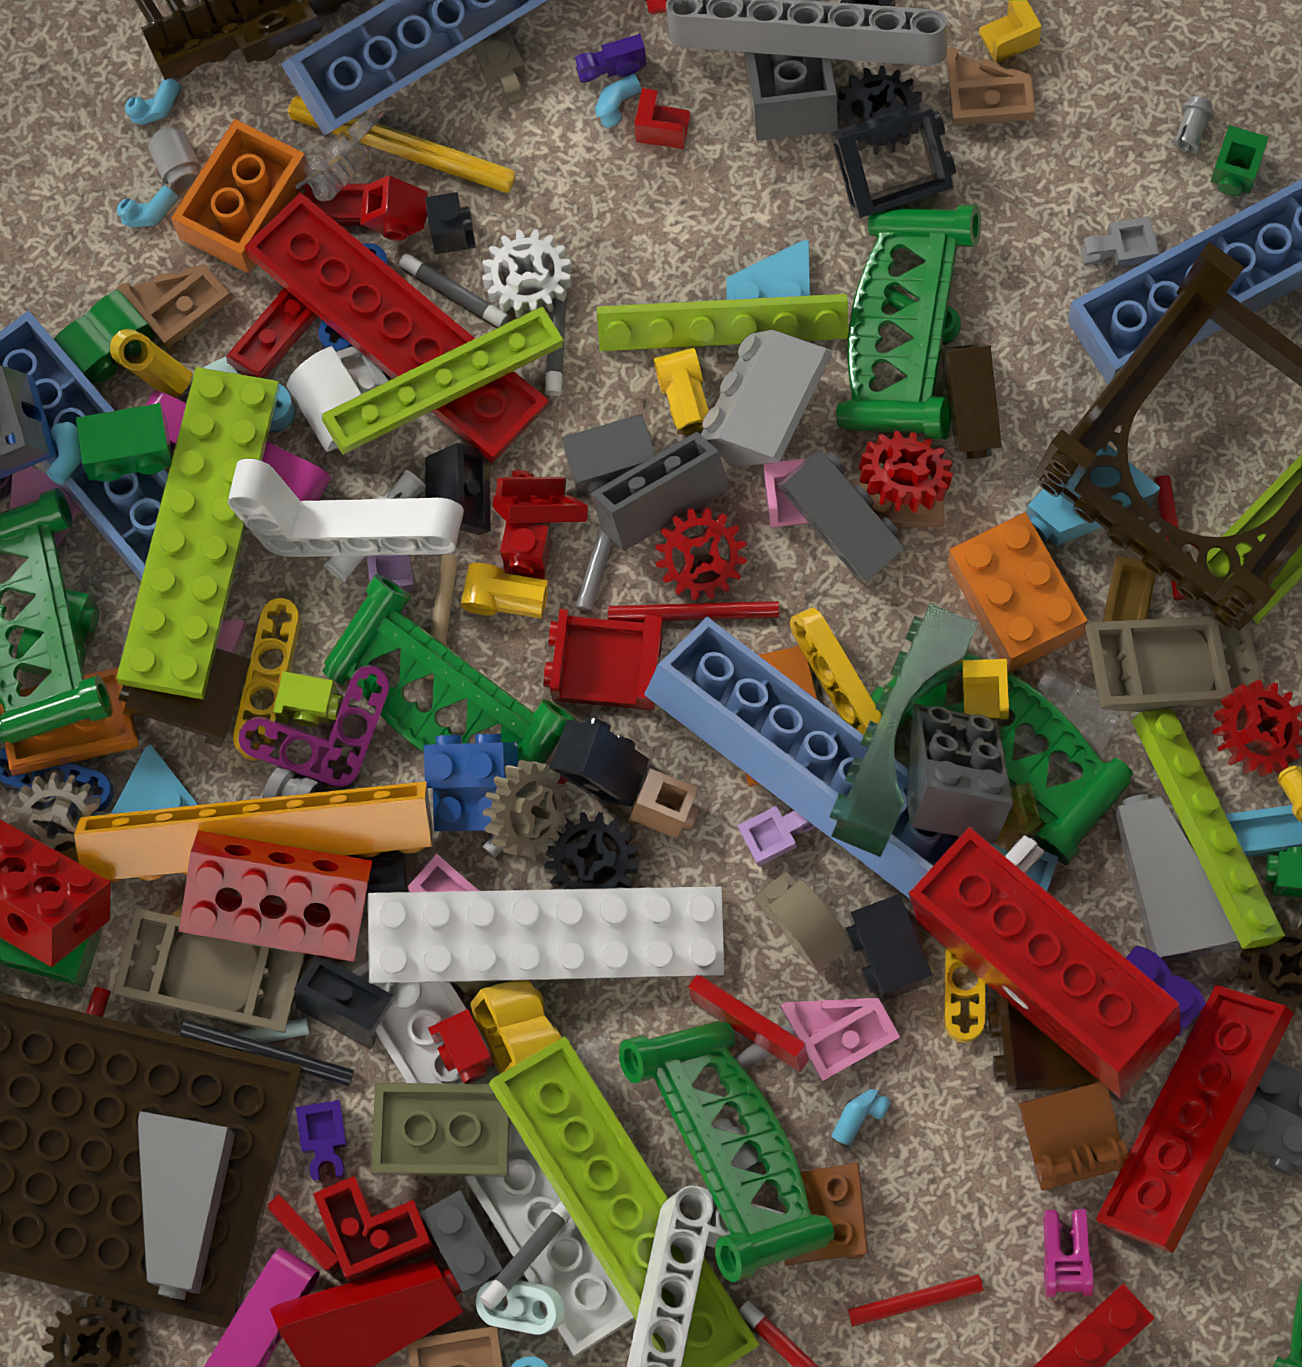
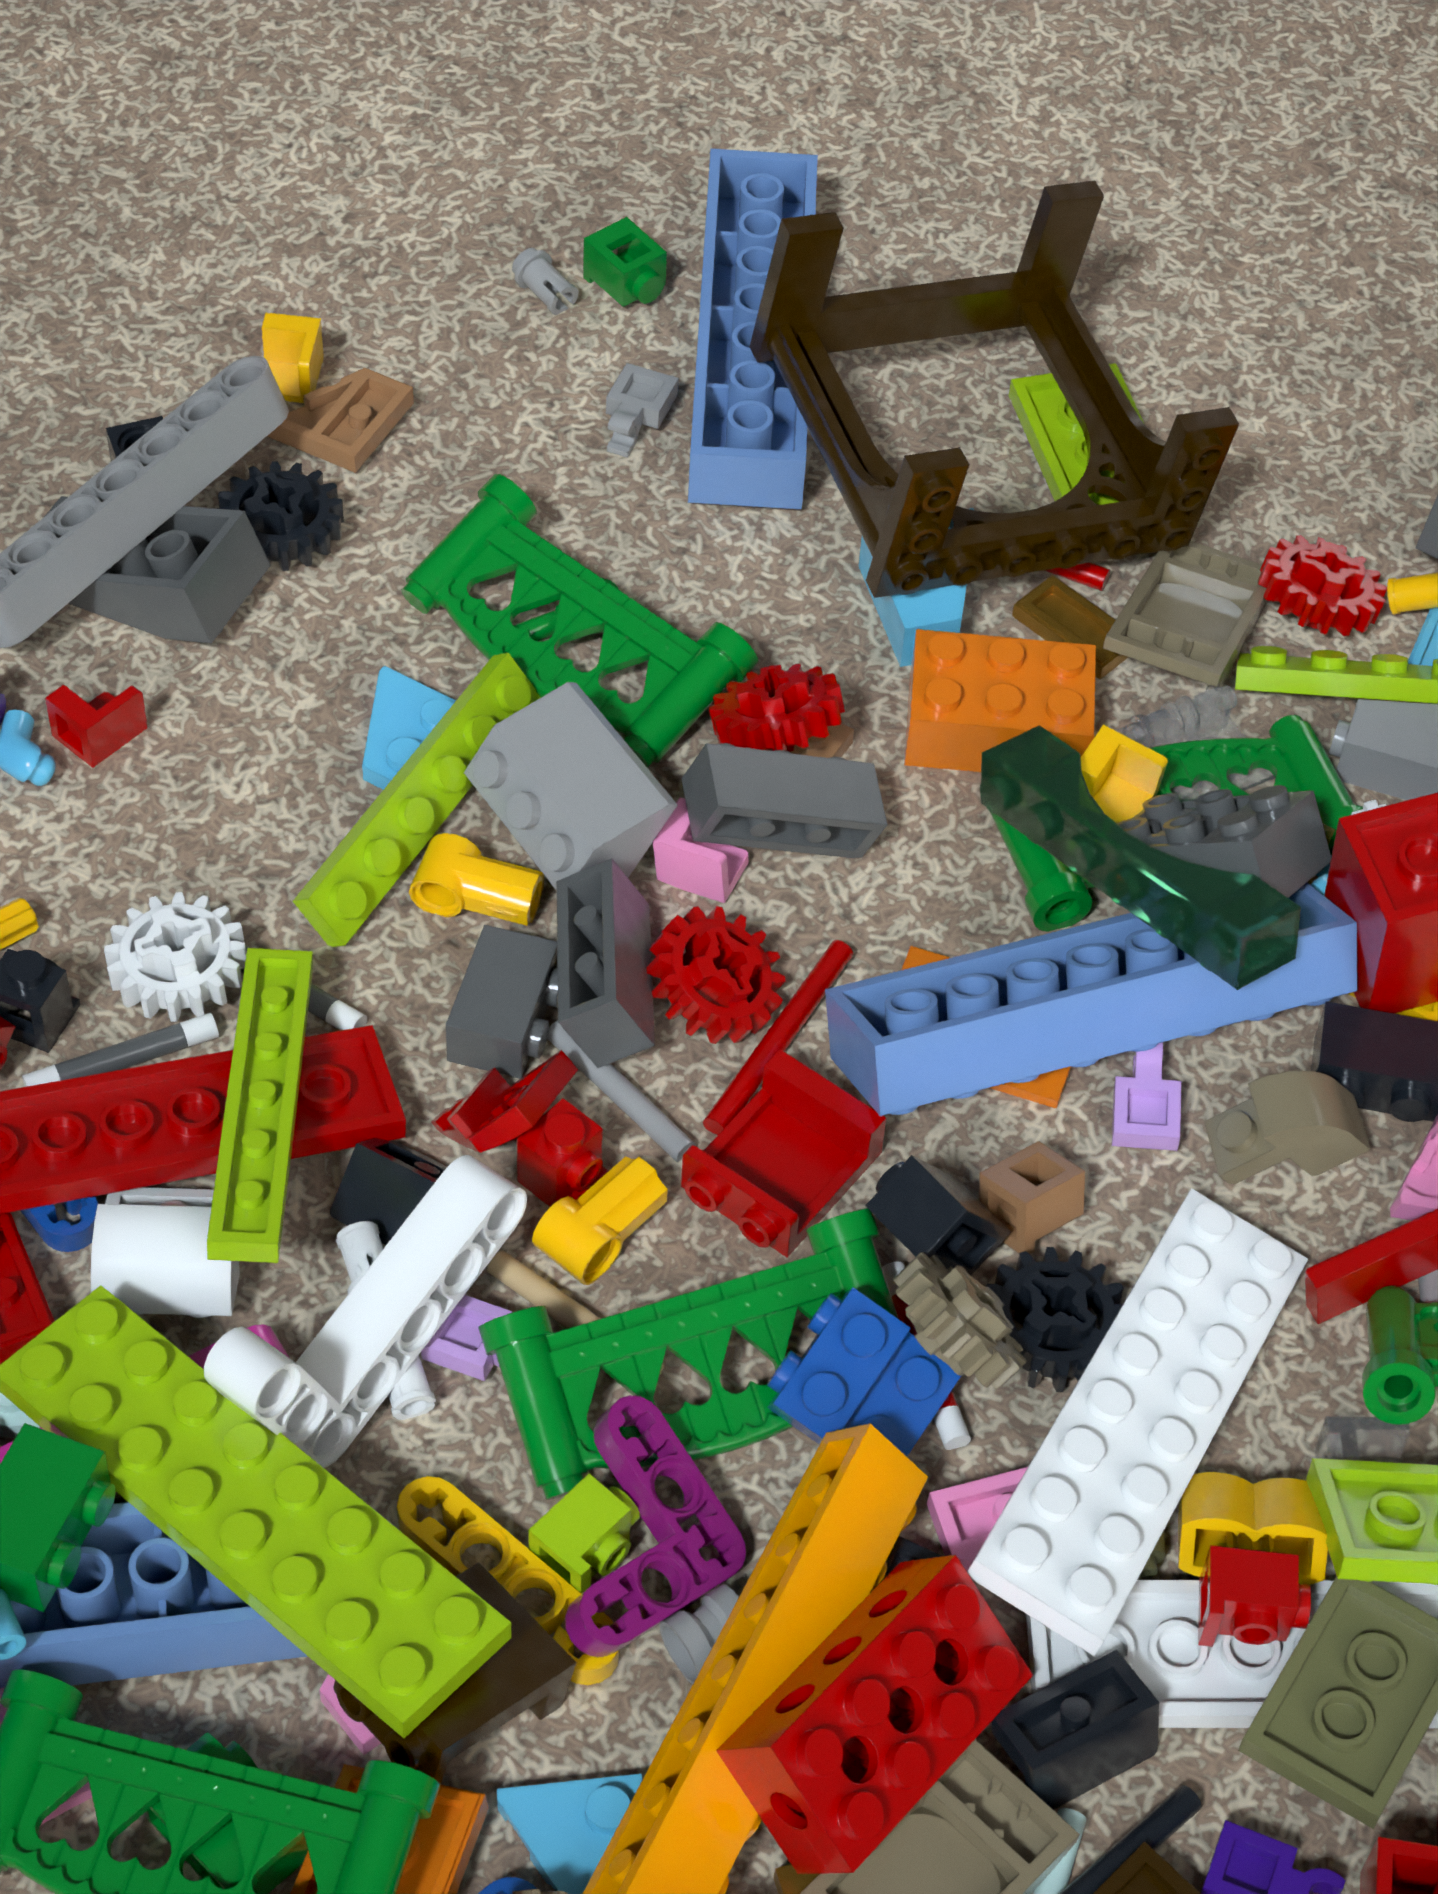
camera: 70 degrees left, 20 degrees down
(834, 669) = (998, 912): yellow beam -> none
(852, 171) = (341, 557): black window -> none
(972, 399) = (711, 587): dark brown slope -> none

